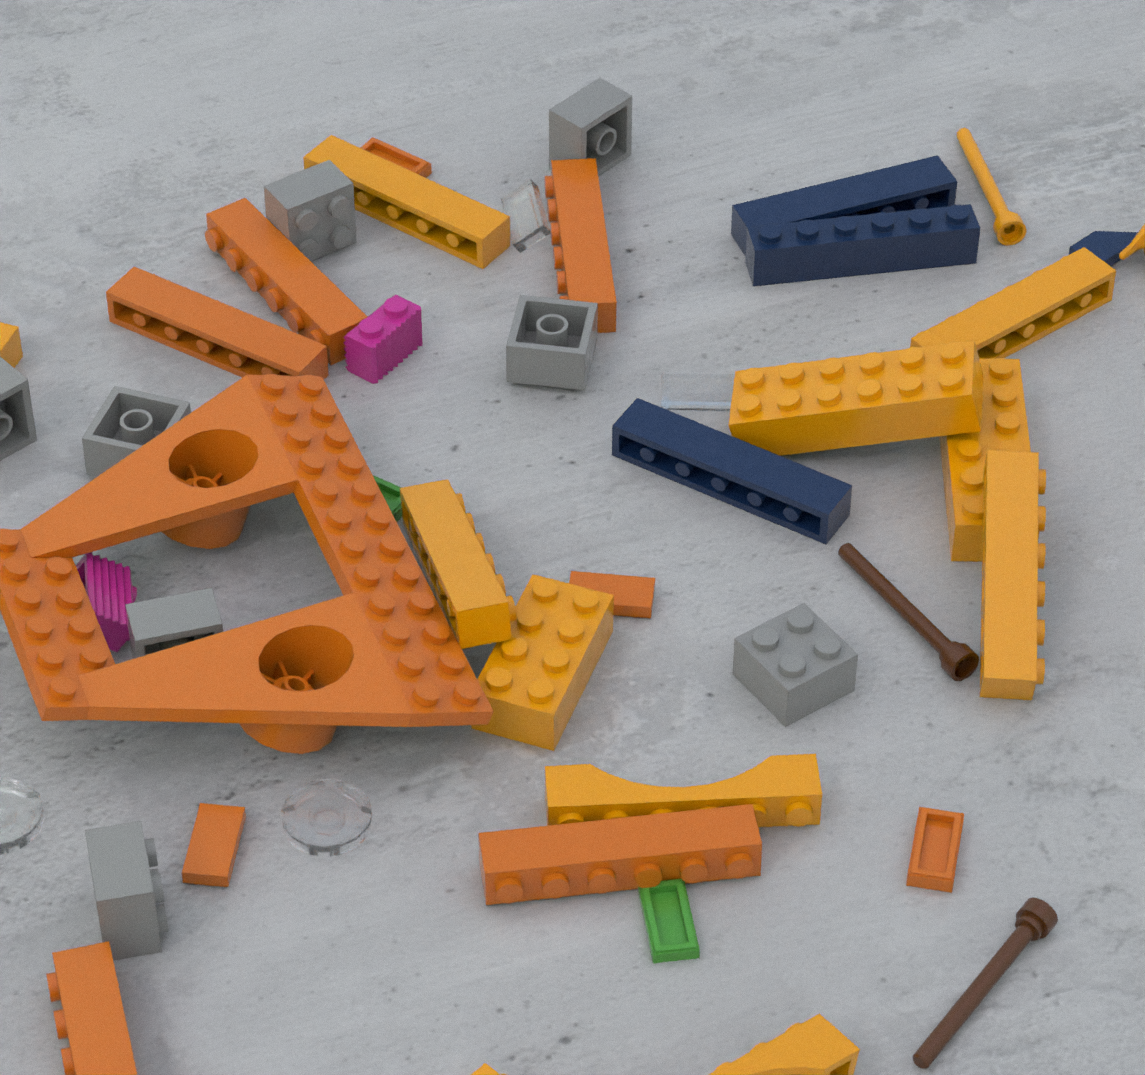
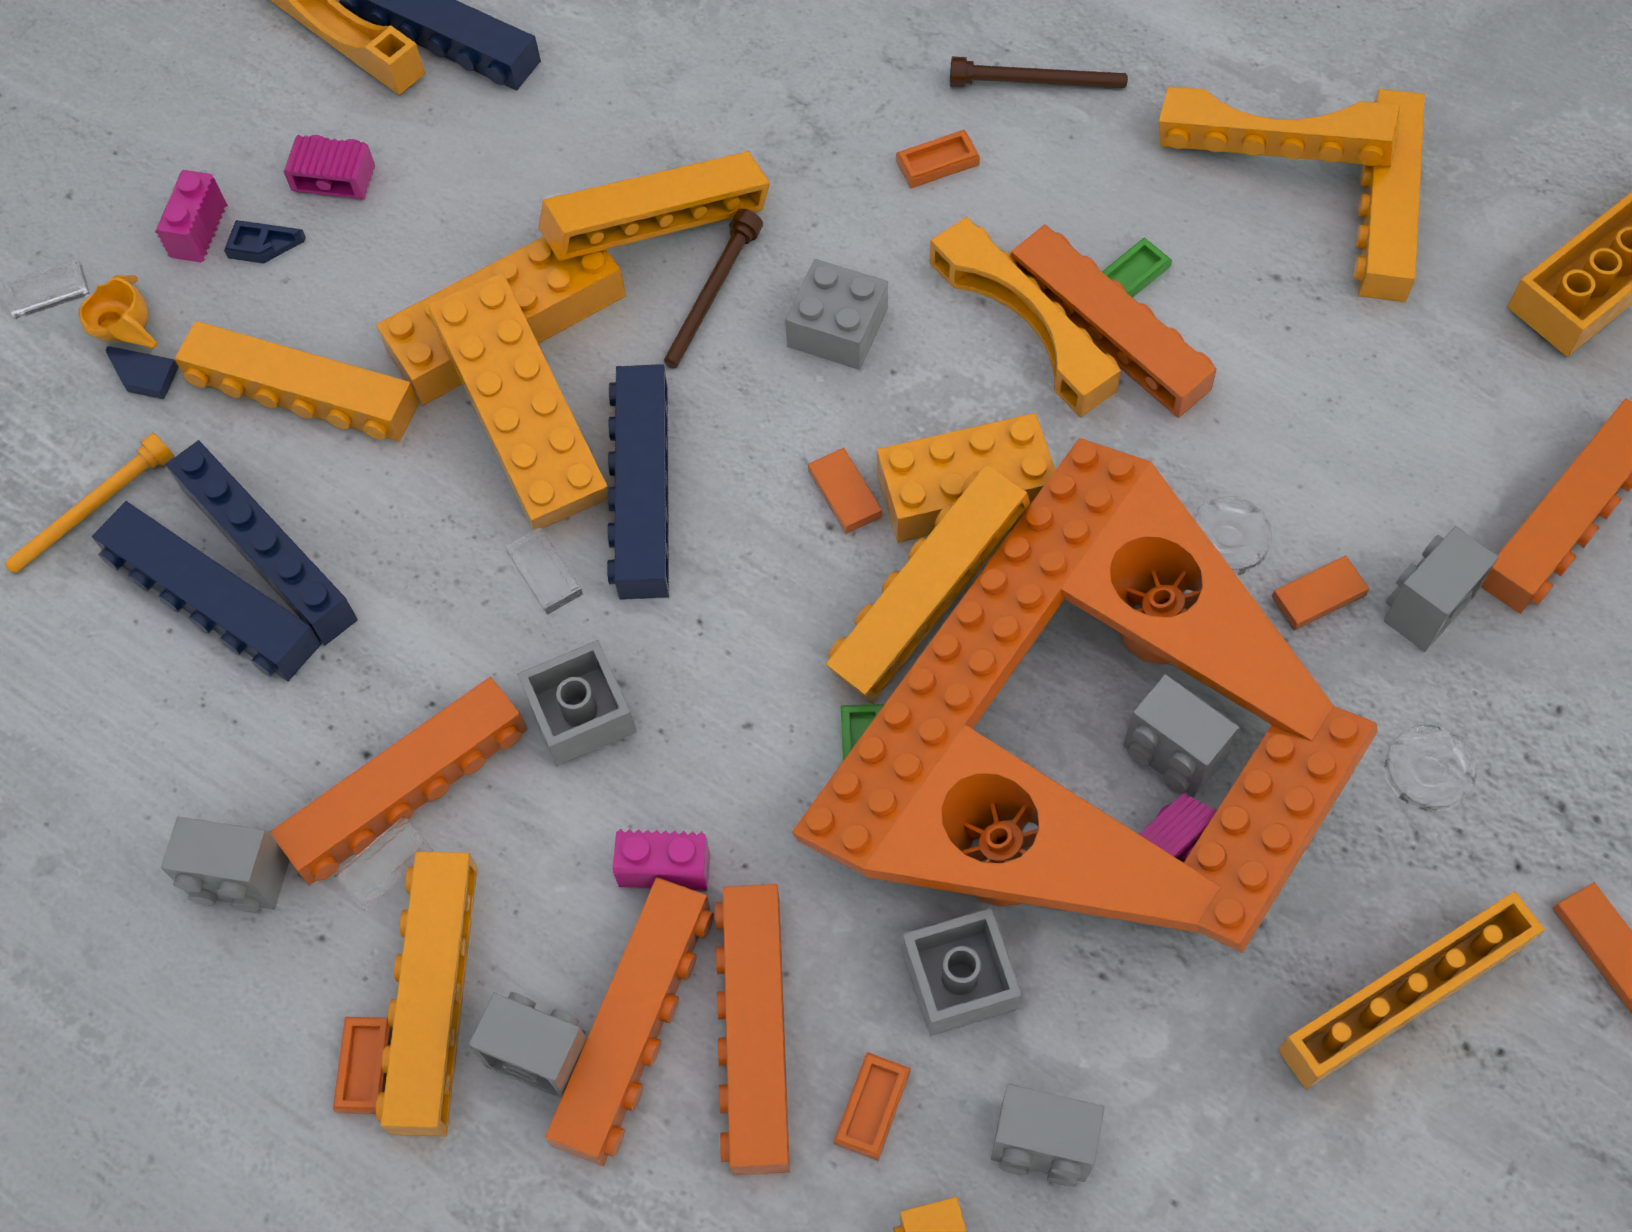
camera: 120 degrees left, 20 degrees up
(103, 369) = (872, 1106): none -> orange tile

